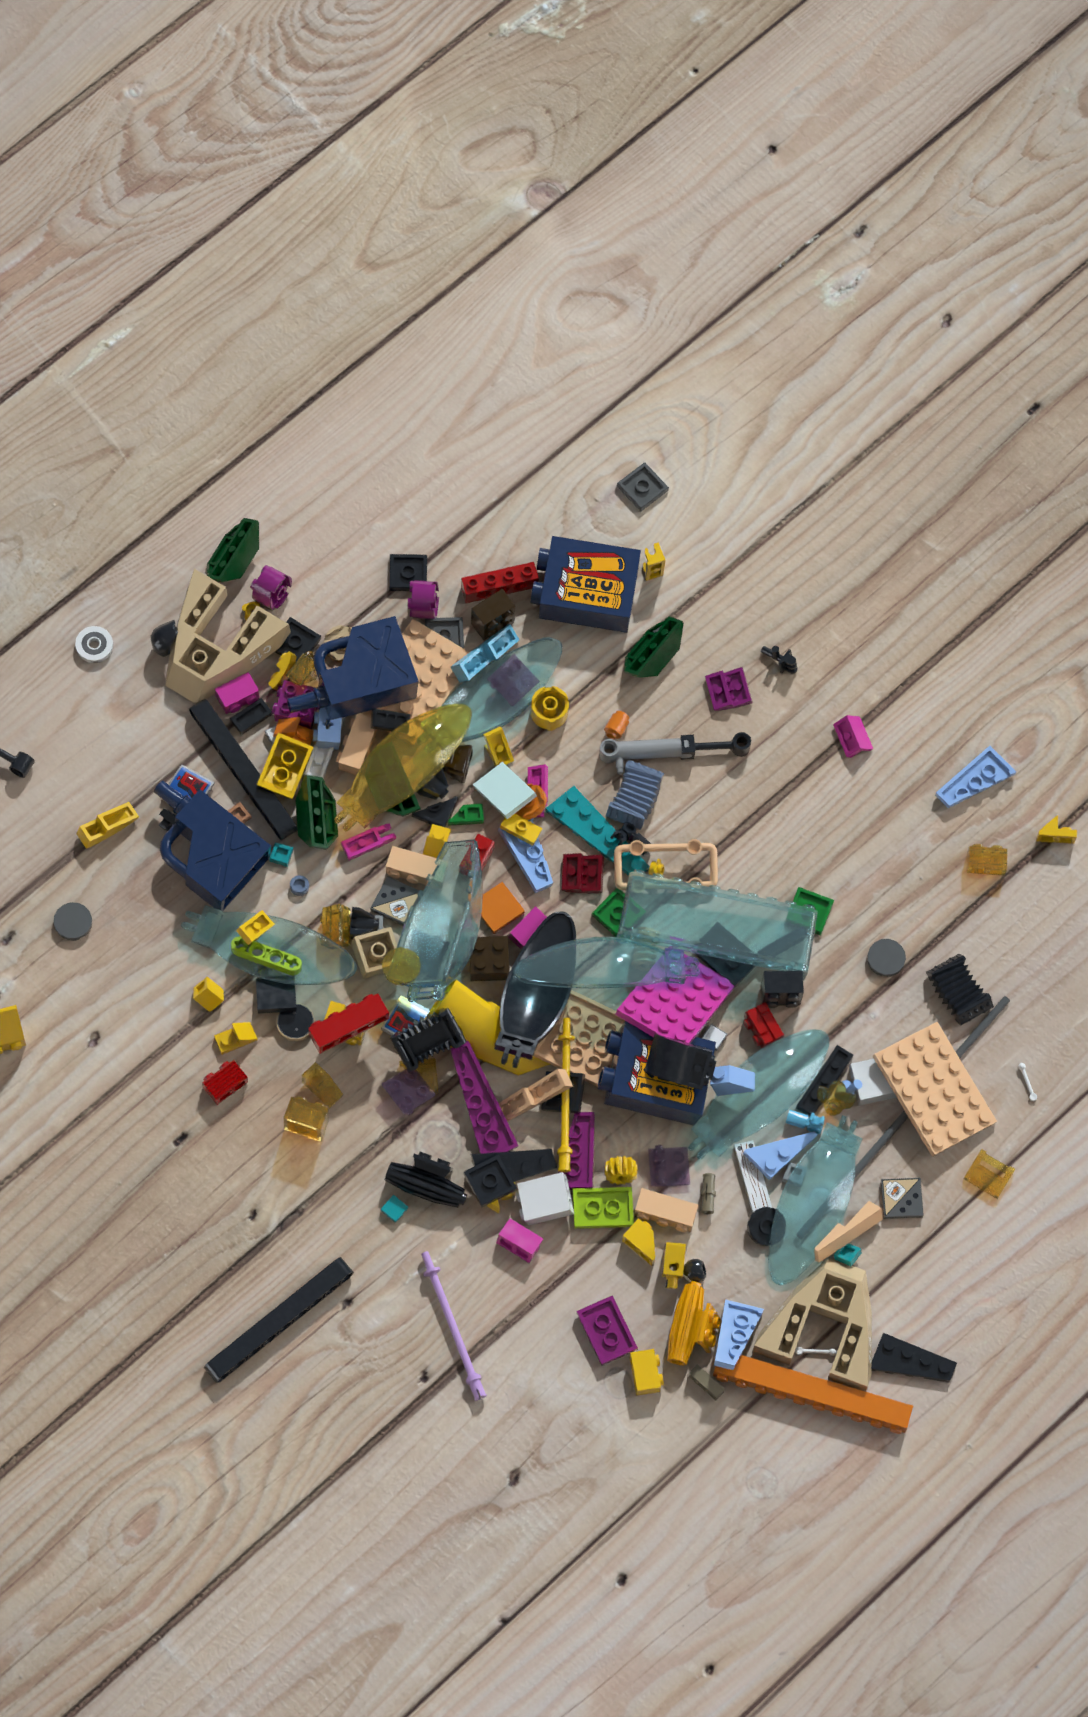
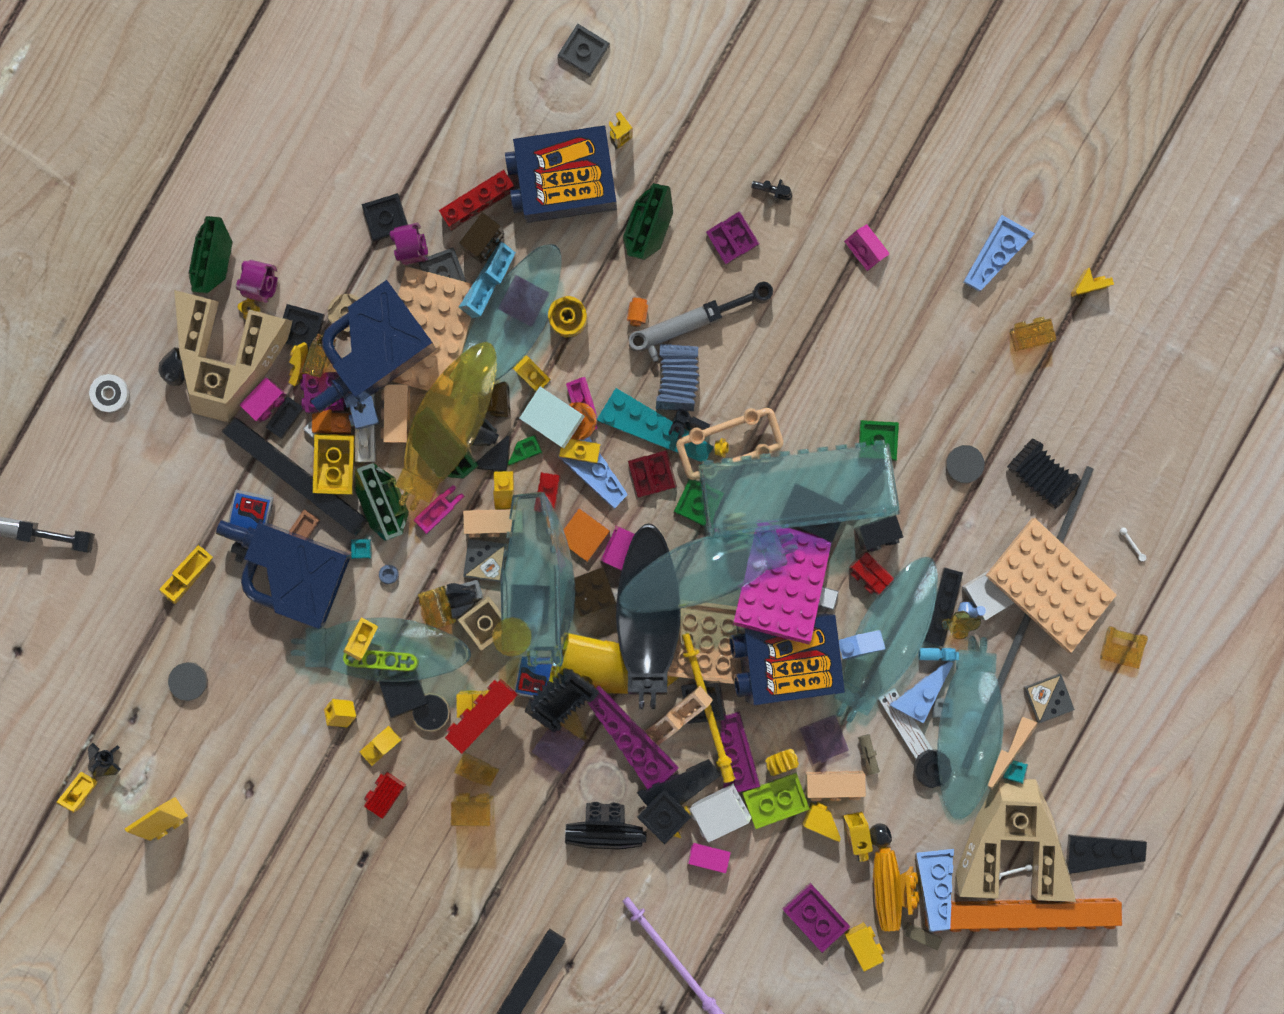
camera: 15 degrees left, 20 degrees up
(387, 720) = (417, 383): black plate -> none
(394, 1208) = (583, 863): teal tile -> none
(680, 1062) = (811, 656): black piece -> none

